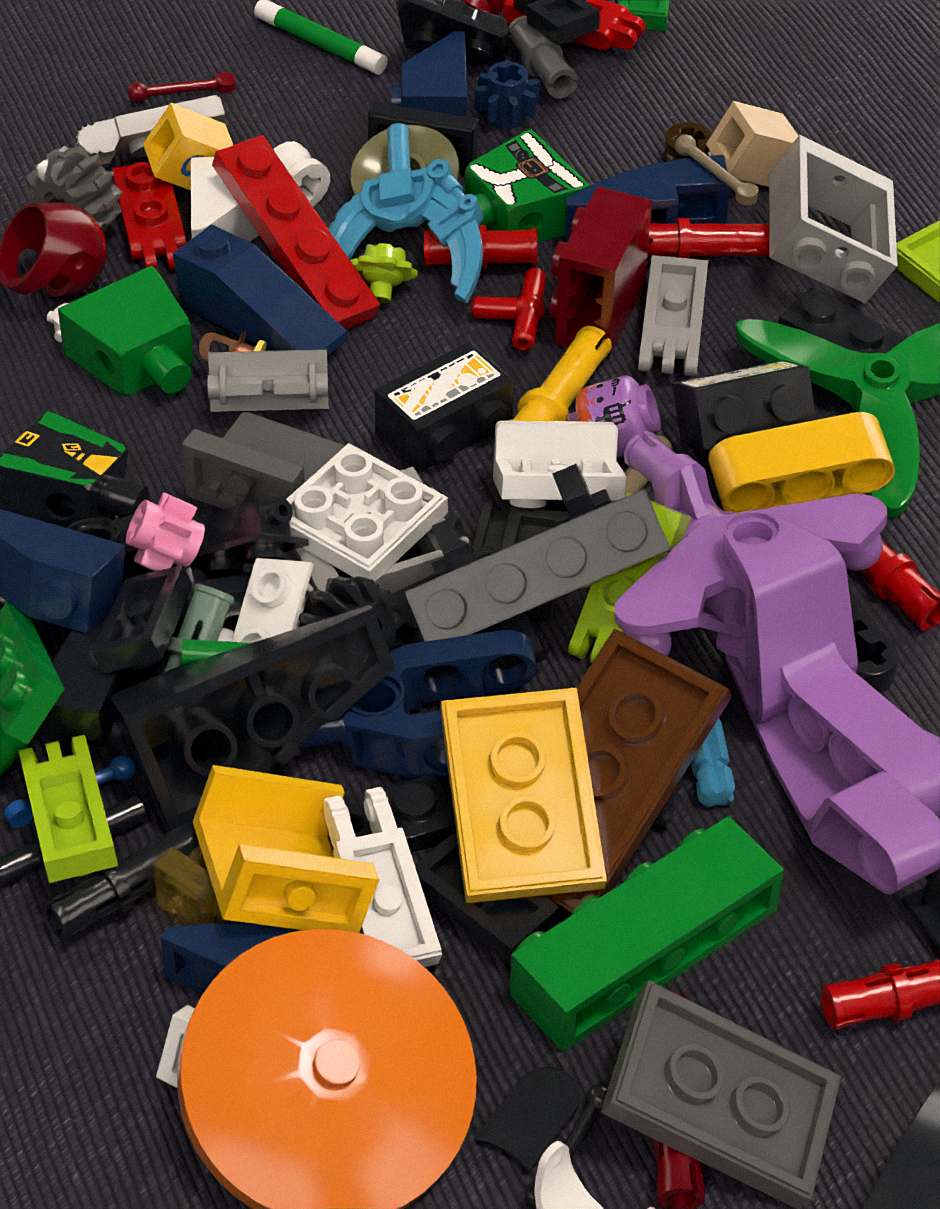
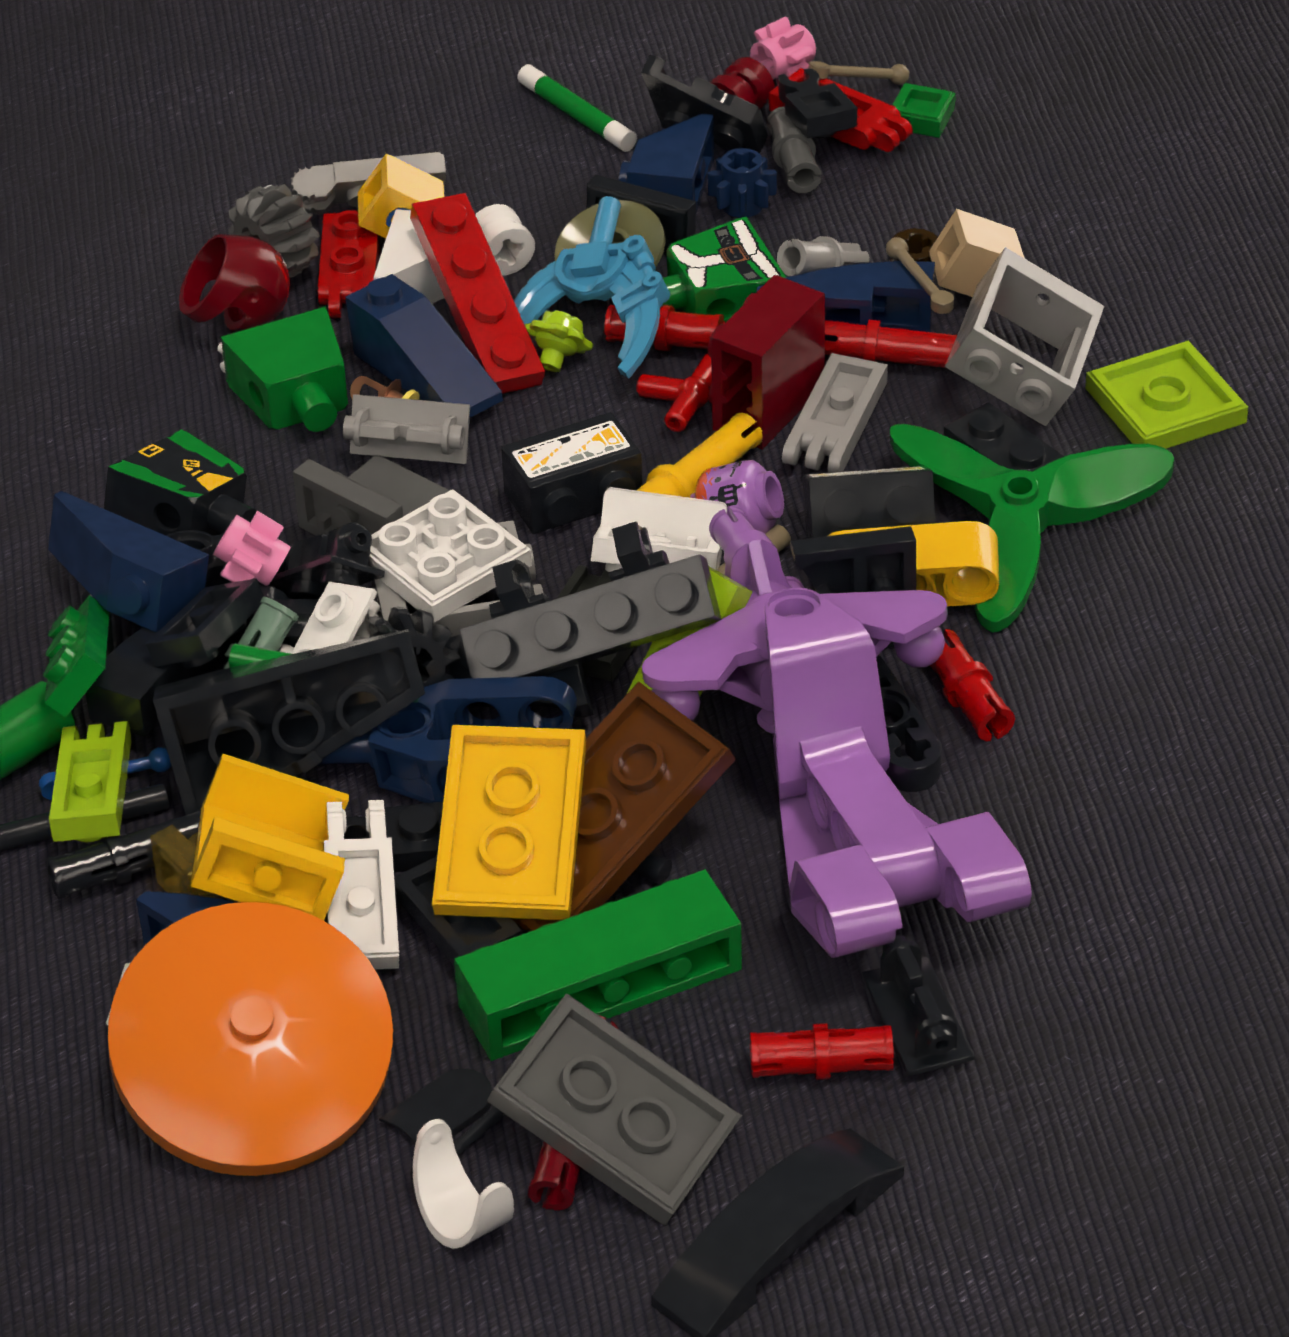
camera: 15 degrees right, 5 degrees down
(223, 82) = (464, 143): dark red hinge -> none
(609, 160) = (820, 253): none -> light grey axle
(710, 768) = (722, 819): dark azure axle -> none
(777, 472) = (859, 561): none -> black wing

